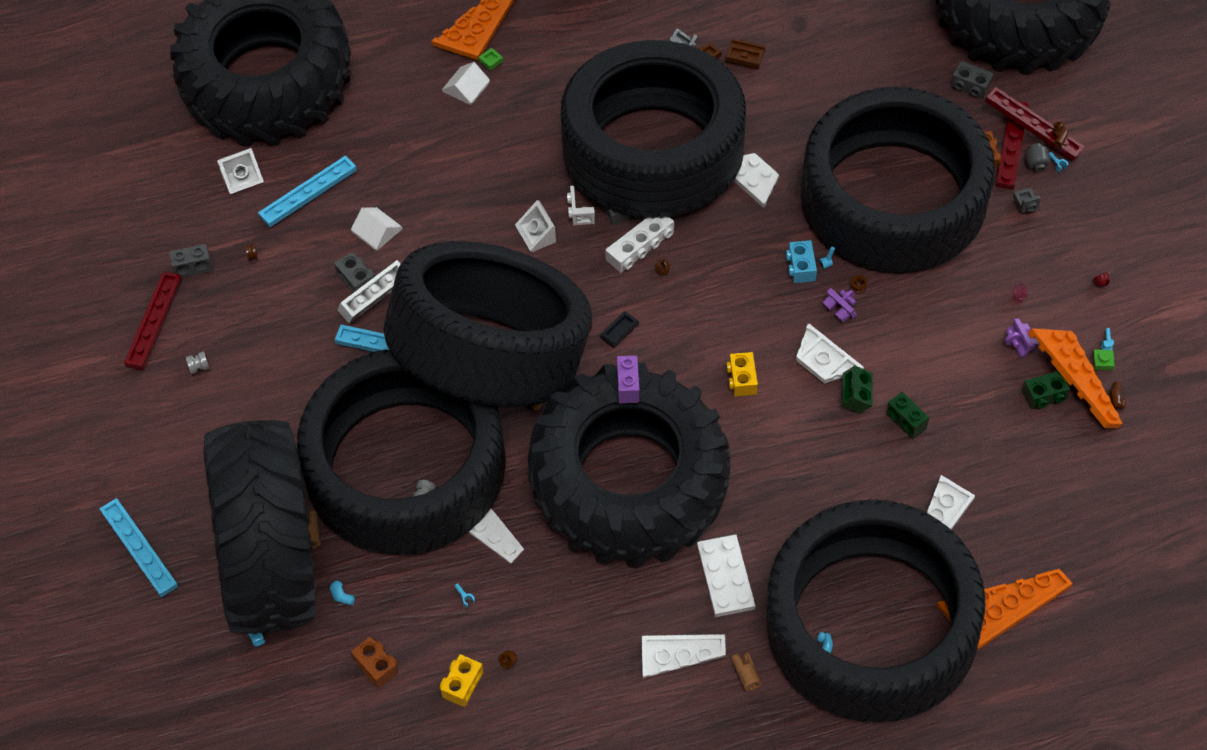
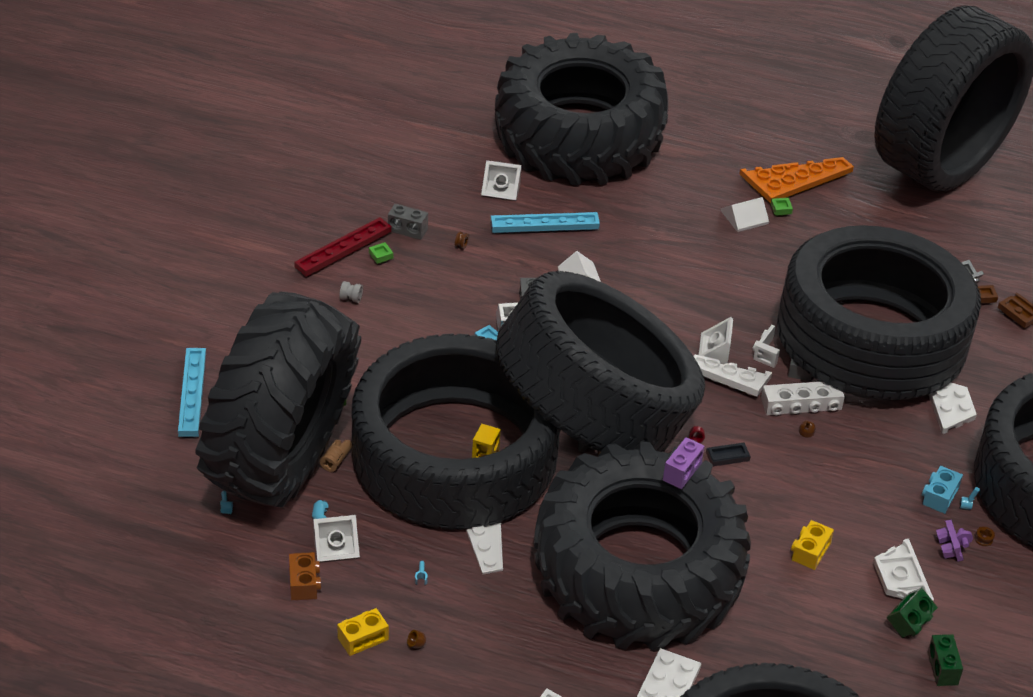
camera: 30 degrees right, 15 degrees down
(191, 306) = (381, 252): none -> bright green plate
(374, 611) = (336, 538): none -> white slope
(432, 448) = (486, 441): none -> yellow brick
(582, 250) = (729, 374): none -> white wing

